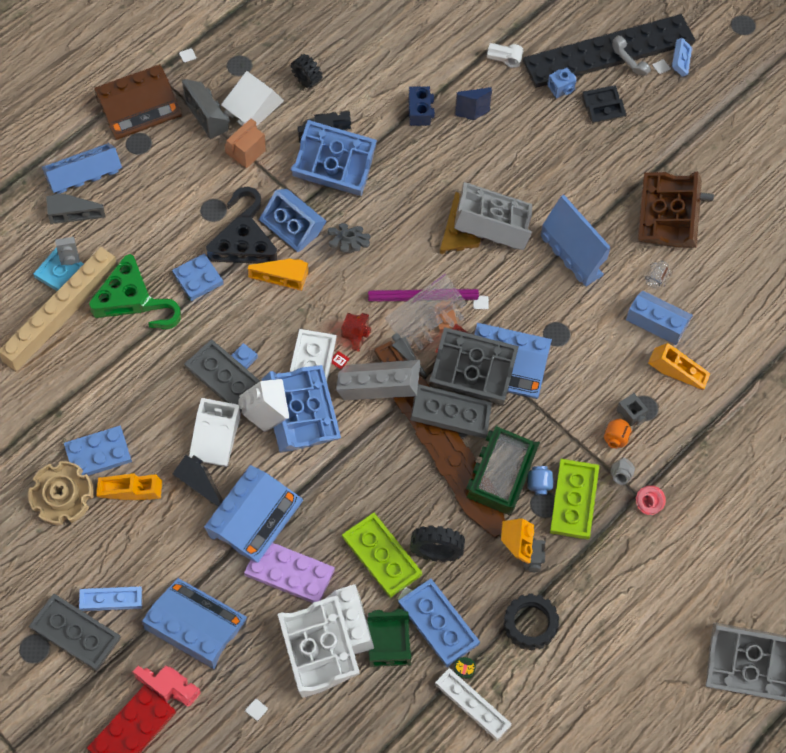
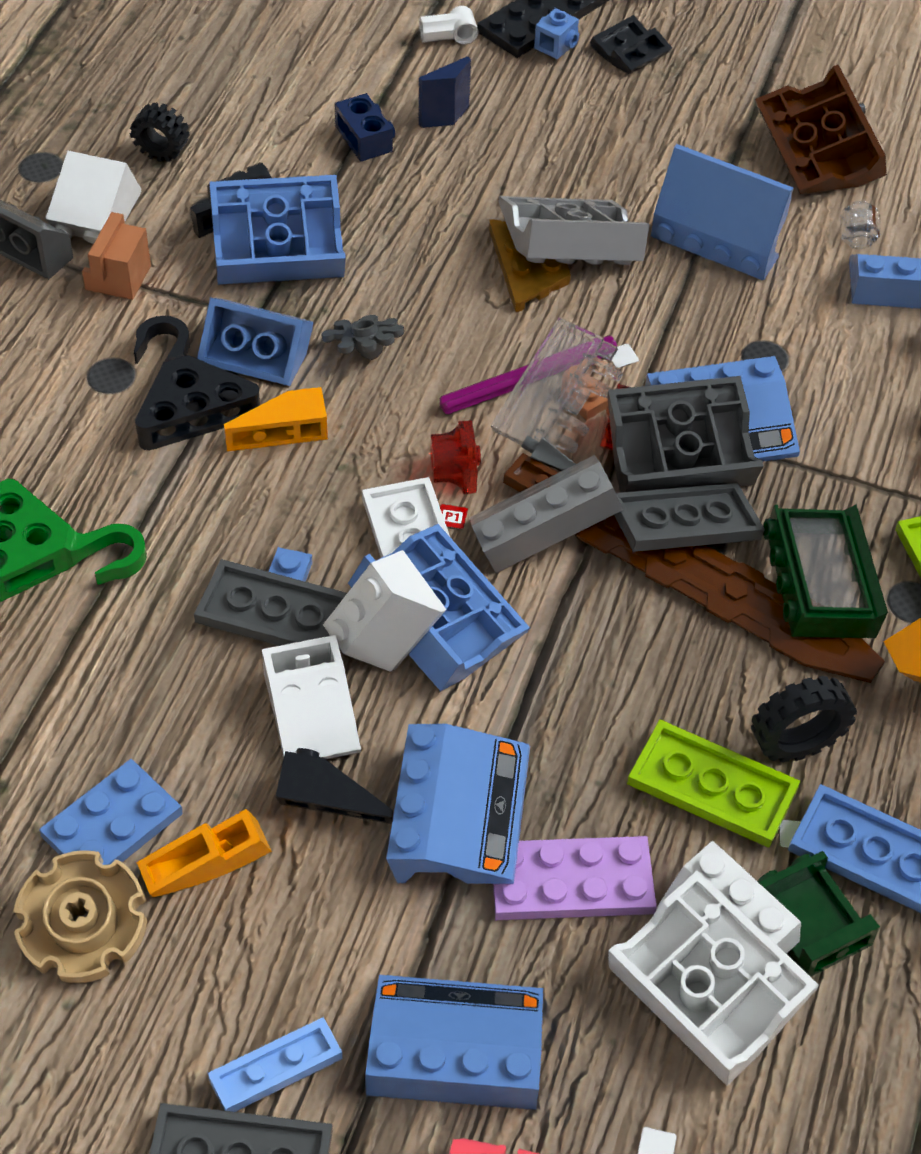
camera: 25 degrees left, 10 degrees down
(197, 277) = (140, 479): medium blue plate -> none
(540, 480) = (892, 564): medium blue head -> none

